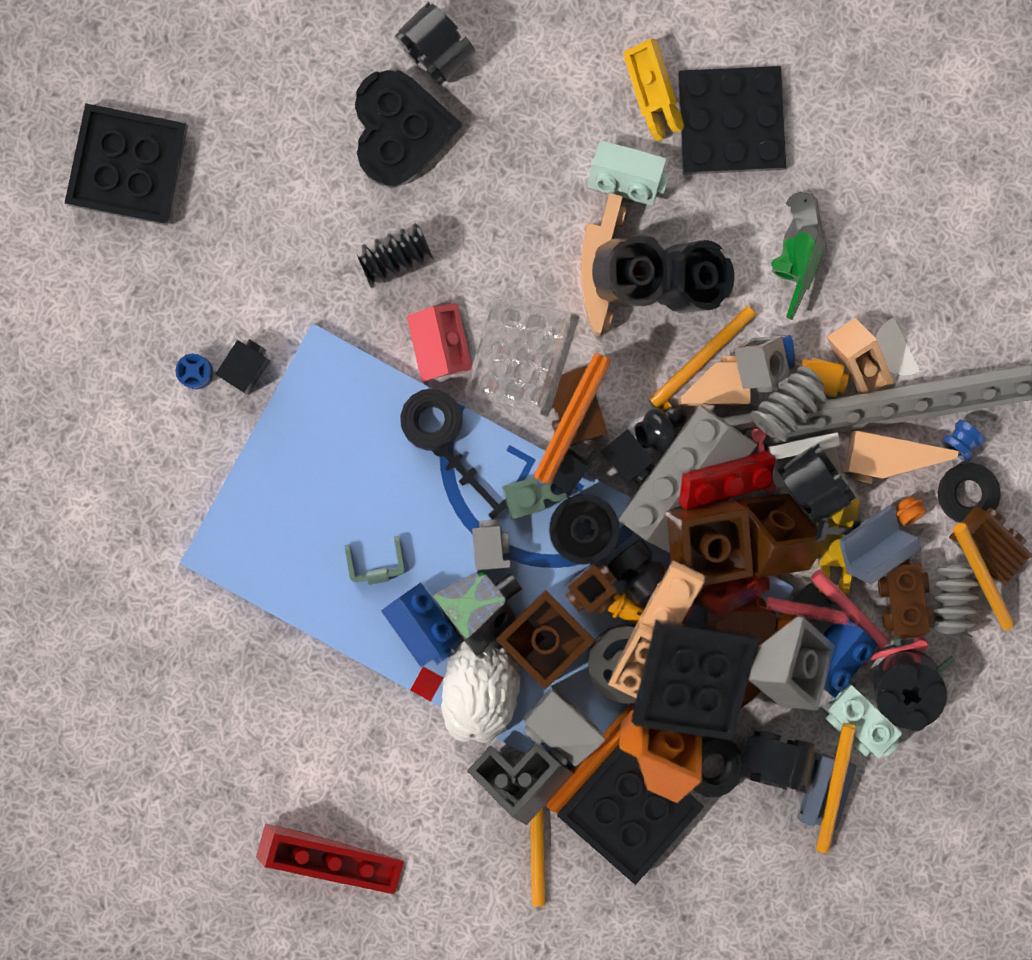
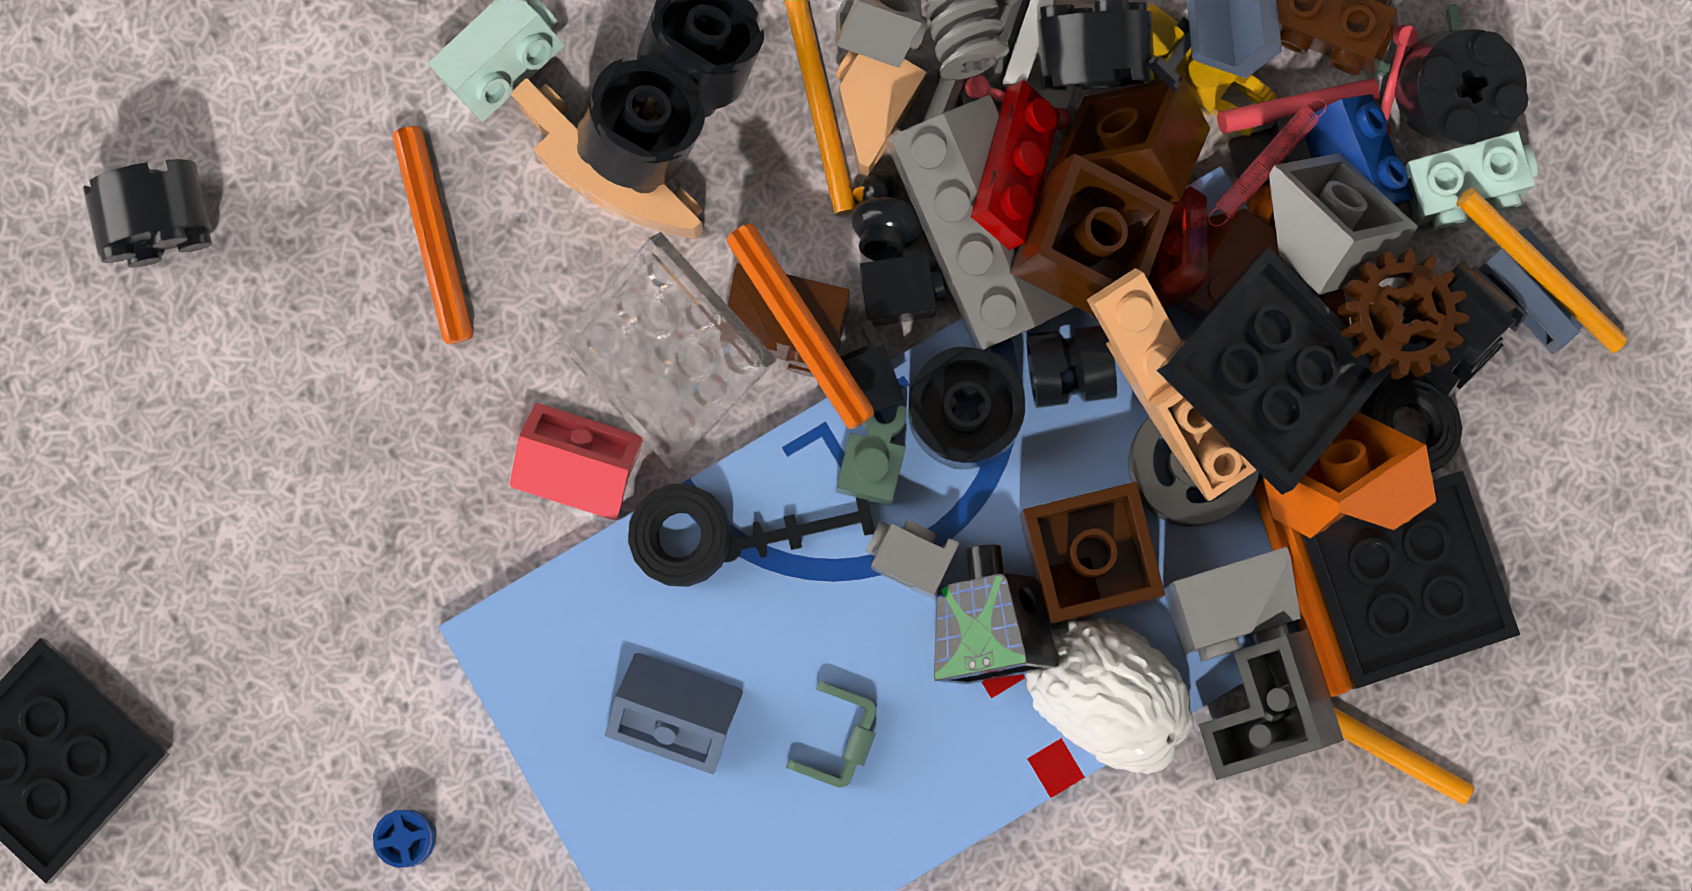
camera: 65 degrees left, 5 degrees down
(243, 365) = (439, 761): black brick -> none
(338, 470) = (673, 712): none -> sand blue panel
(394, 255) = (412, 448): black piece -> none
(401, 127) = (237, 334): black plate -> none
(421, 626) = (969, 722): blue brick -> none
(513, 197) = (432, 235): none -> orange axle
(592, 589) = (1059, 443): reddish brown brick -> none
(625, 608) = (1114, 417): light orange pin -> none
(767, 744) = (1427, 308): none -> reddish brown gear

